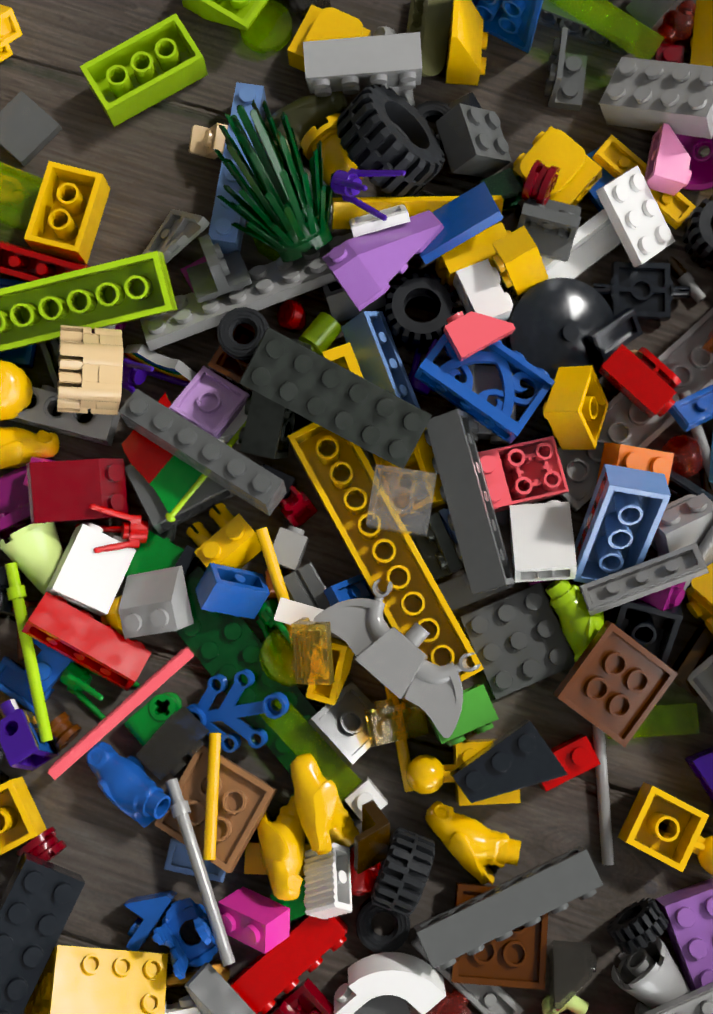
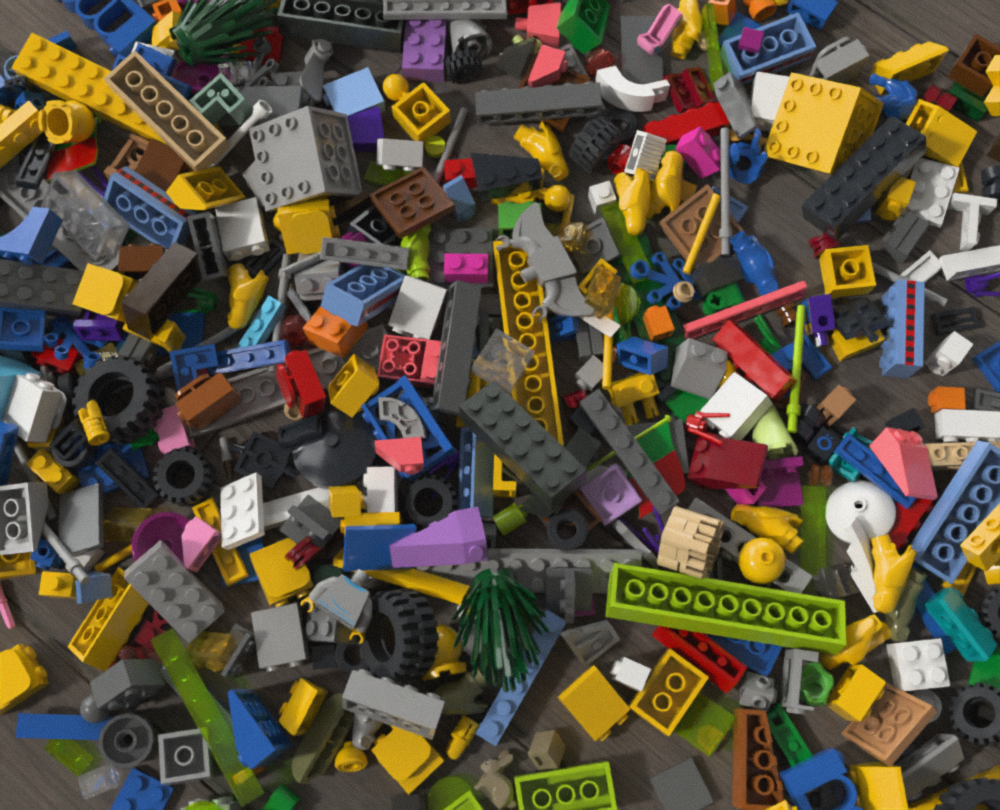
camera: 160 degrees left, 5 degrees down
(115, 212) = (630, 673): none -> white brick
(149, 171) = (594, 704): none -> yellow slope
(150, 909) = (766, 185): blue slope -> none
(181, 109) = (546, 750): none -> dark tan panel
(206, 139) = (535, 711): tan bracket -> none
(208, 701) = (683, 291): none -> tan plate
(223, 55) = (496, 784): none -> dark tan animal
(226, 644) = (658, 323): none -> orange brick
(279, 85) = (461, 736): none -> yellow hinge
(291, 315) = (525, 541): red tile -> none
(349, 185) = (446, 601): dark purple plant -> none
(368, 223) = (434, 572): white tile -> none
(373, 842) = (604, 170): dark brown panel -> none
(392, 17) = (350, 758): none -> yellow brick
(467, 143) = (344, 601): none -> light grey torso
(496, 385) = (403, 416): none -> light grey tile
(503, 619) = (466, 268): none -> dark pink brick
(518, 969) = (548, 67): none -> coral slope
(523, 103) = (280, 637): none -> light grey brick
(554, 717) = (461, 197): none -> medium blue slope
(595, 62) = (210, 650): none -> clear yellow bracket
(623, 790) = (434, 146): none -> neon yellow tile
(664, 751) = (399, 153): none -> white brick

